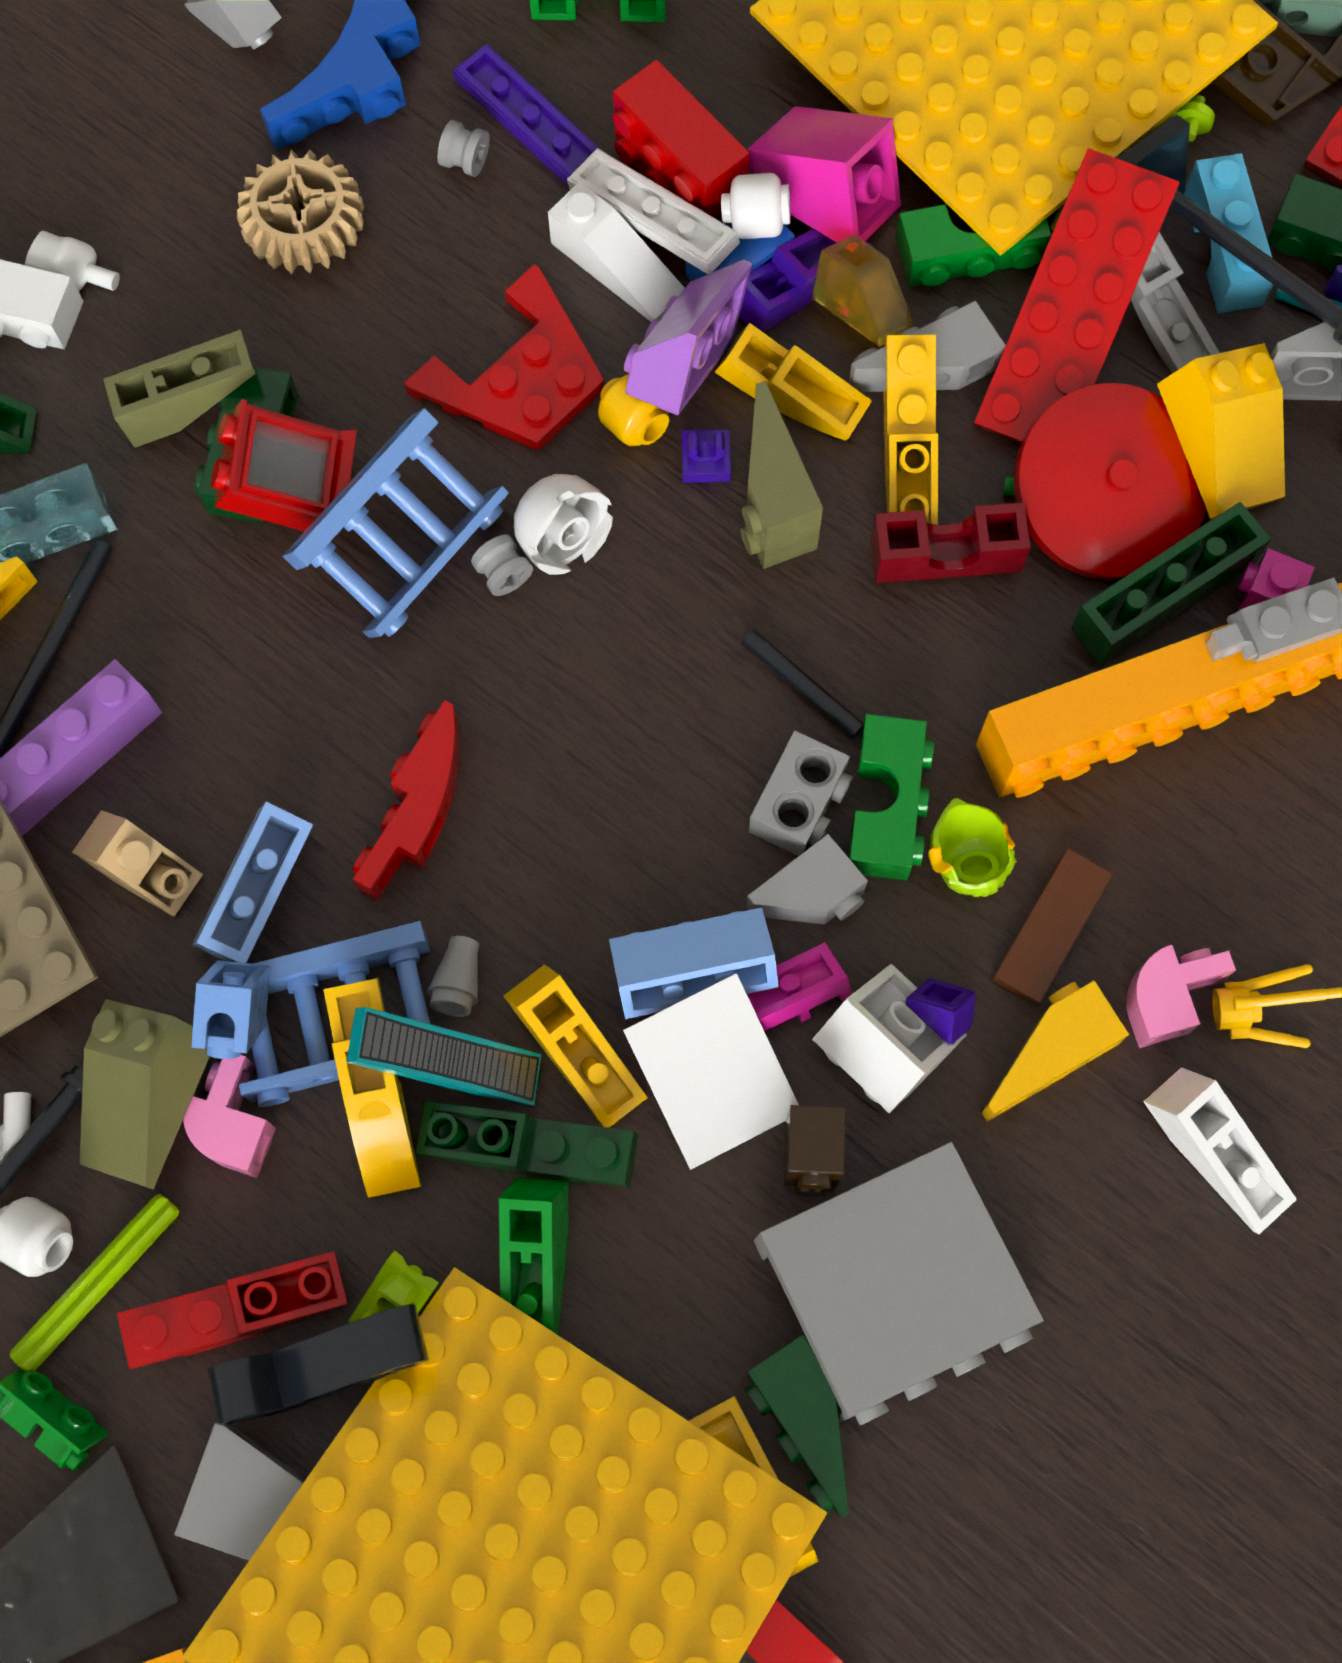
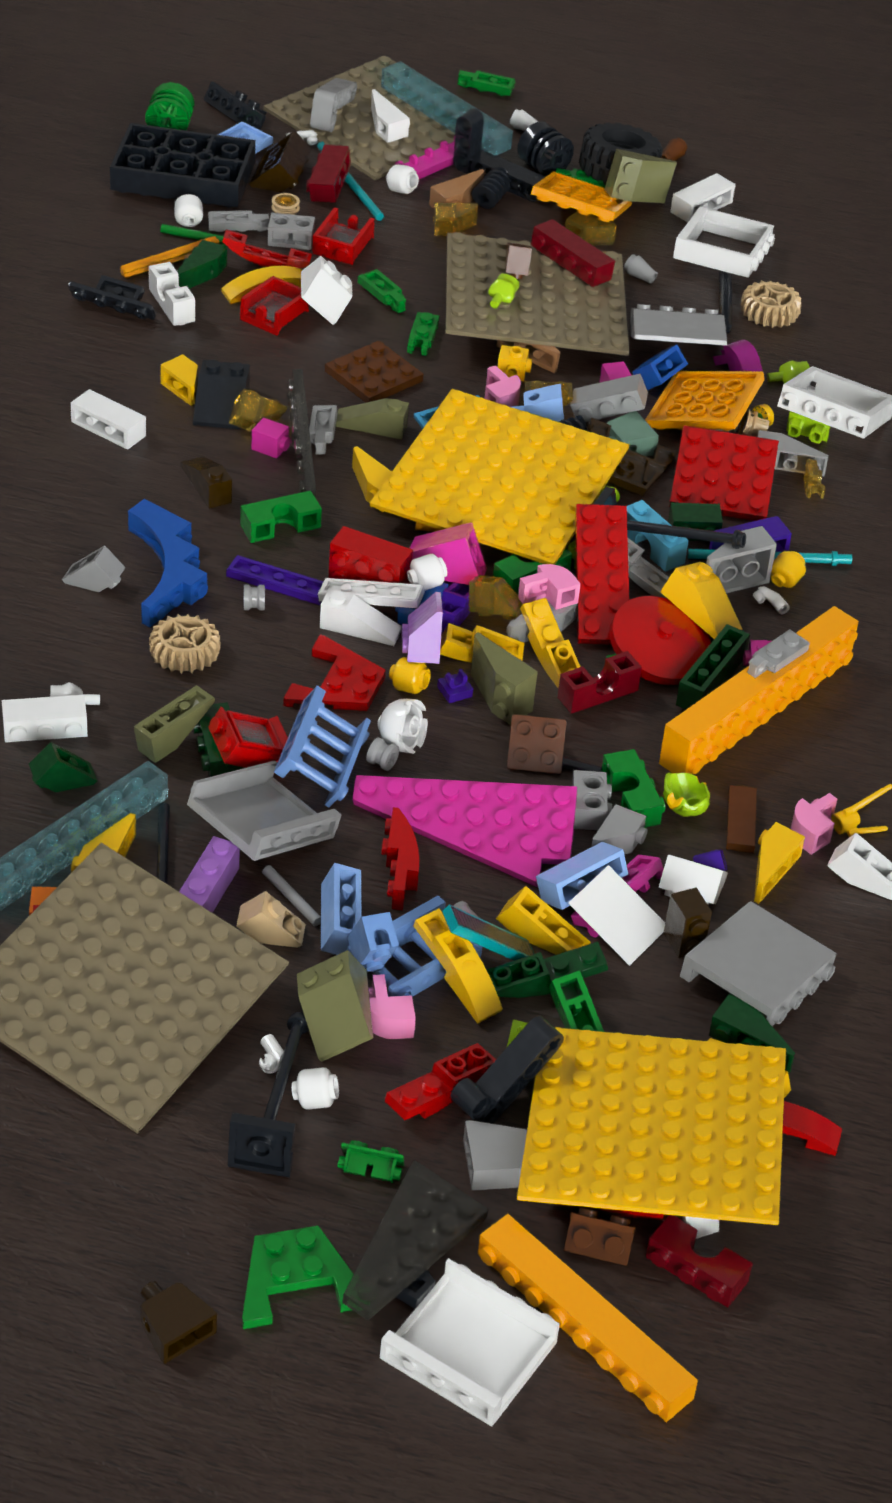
camera: 30 degrees left, 30 degrees down
(94, 1283) = (359, 1100): lime axle -> none
(209, 806) = (280, 883): none -> light grey bar
(222, 632) = (260, 812): none -> light grey panel
(608, 788) = (492, 822): none -> dark pink wing
(766, 643) = (536, 743): none -> reddish brown bracket
(968, 300) = (550, 582): none -> bright pink brick

